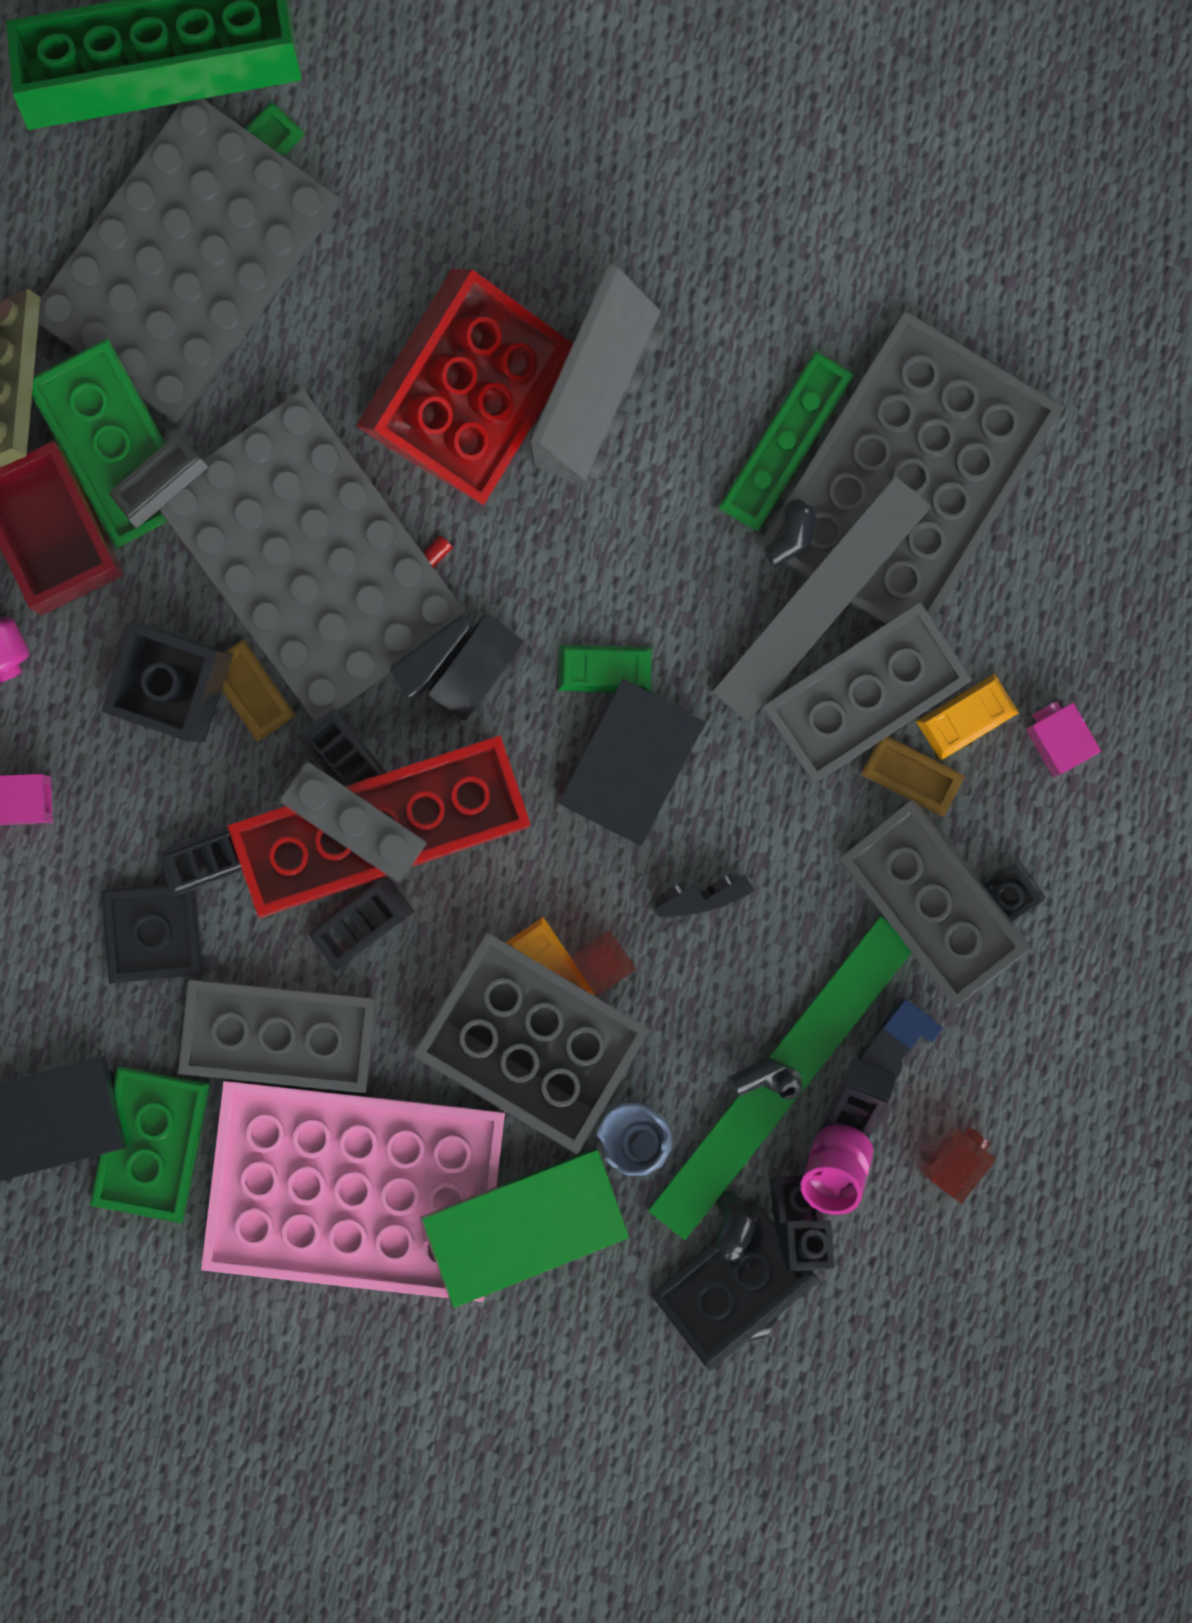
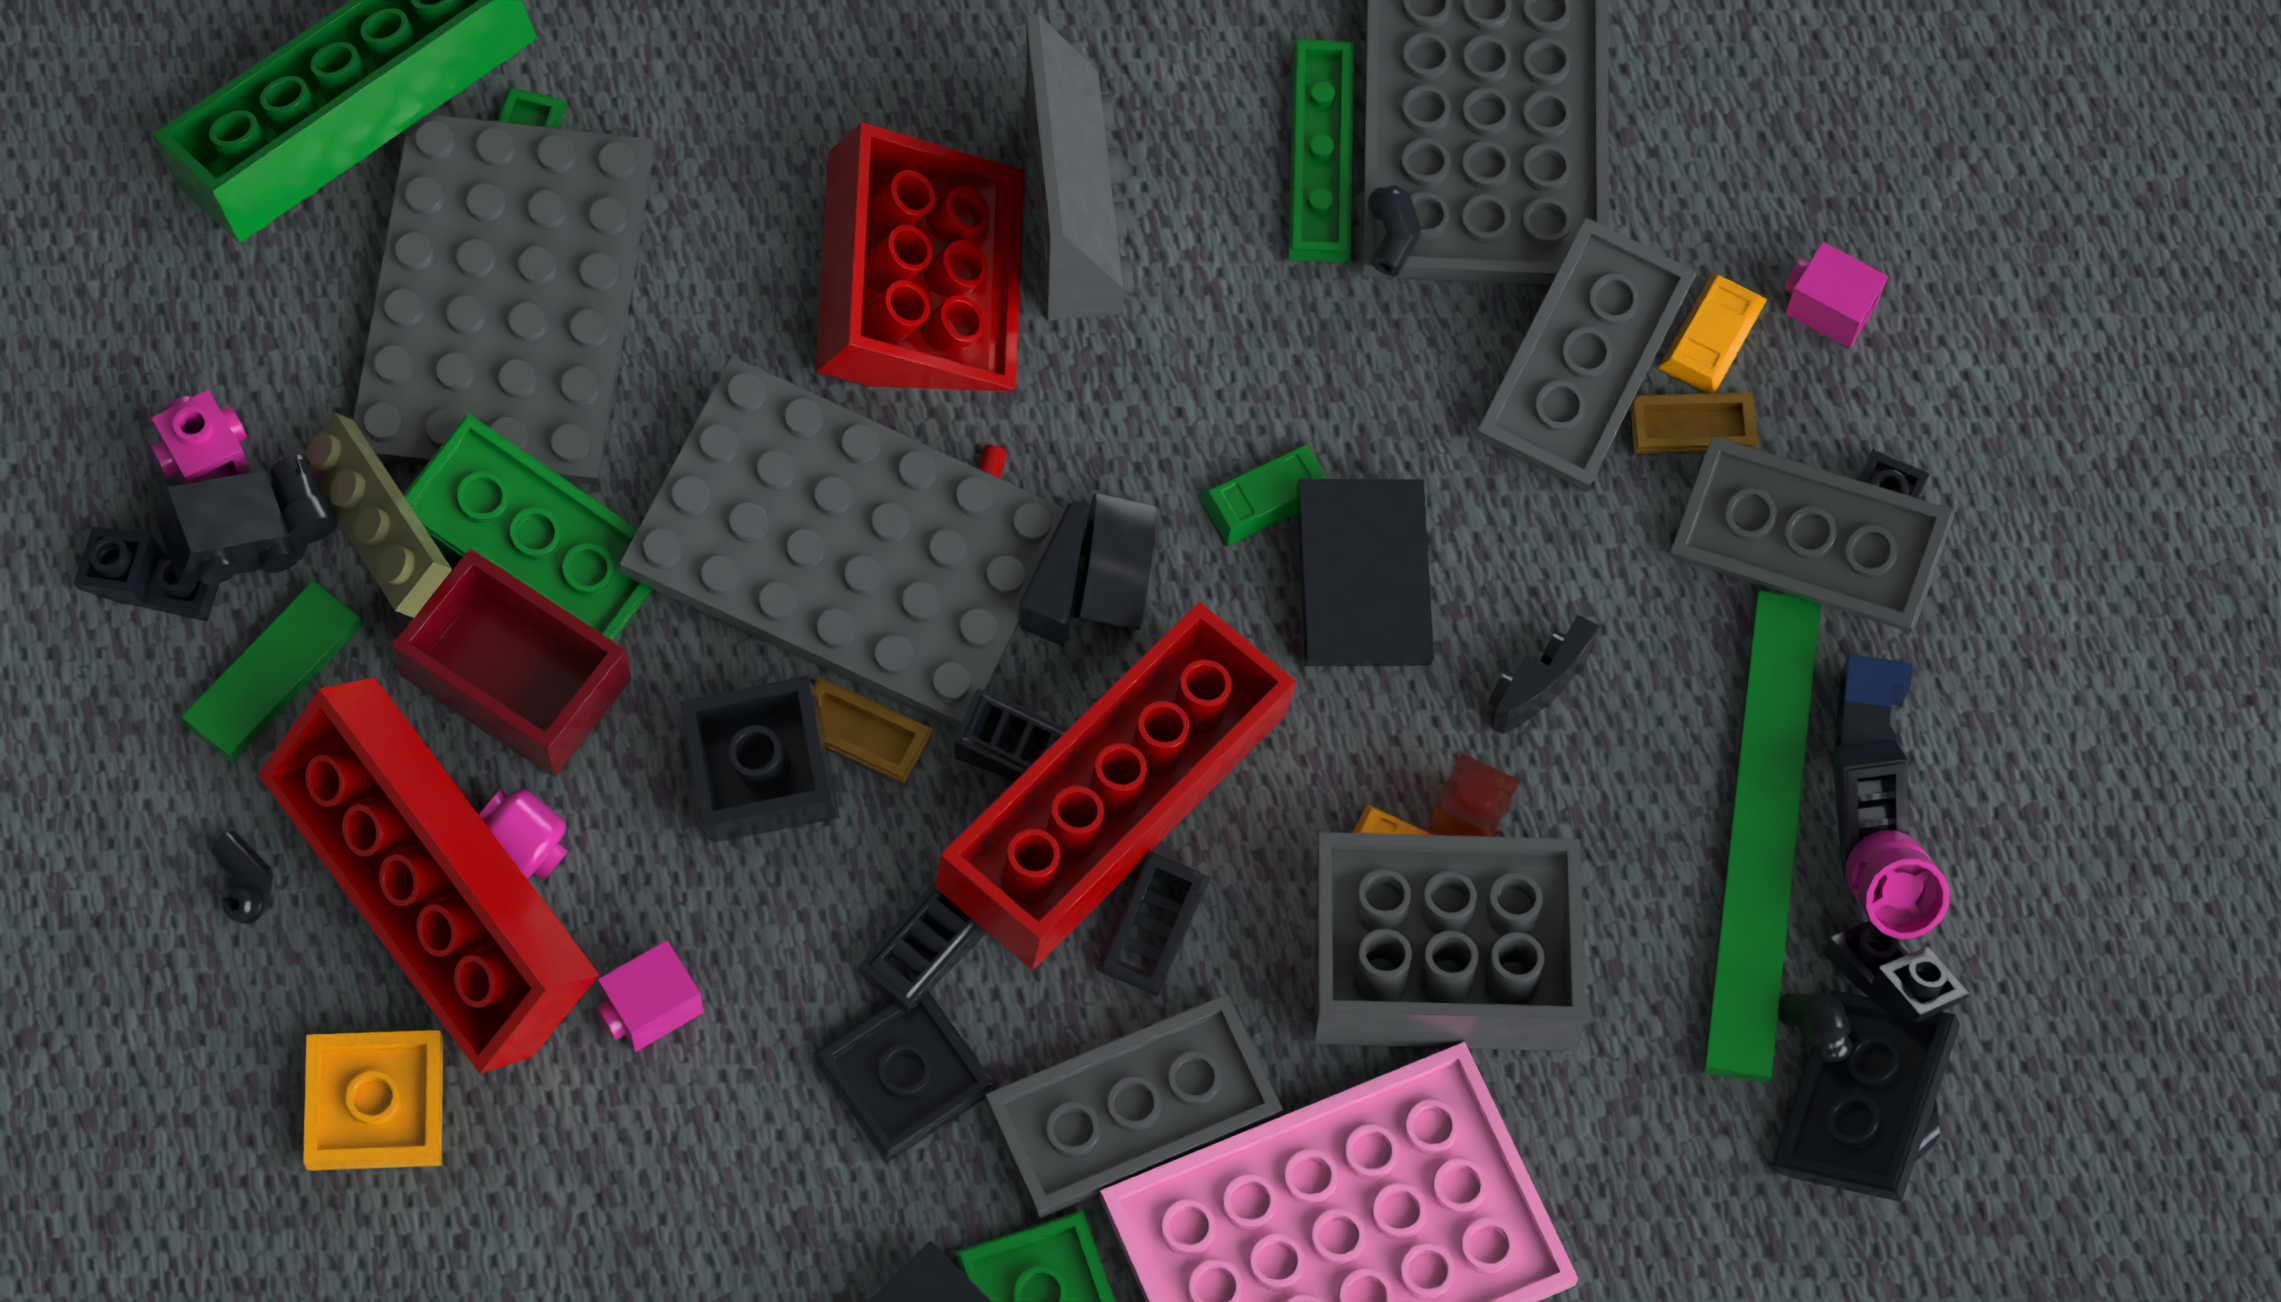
camera: 35 degrees left, 20 degrees down
(158, 480) = (618, 537): dark grey tile -> none
(353, 822) = (1089, 774): dark grey plate -> none
(524, 1227) = (1572, 1161): green tile -> none
(648, 1149) = (1641, 963): sand blue hair -> none
(770, 1075) = (1749, 827): black arm -> none
(822, 598) = (1470, 283): dark grey tile -> none
(959, 1163) = (2028, 812): clear red brick -> none

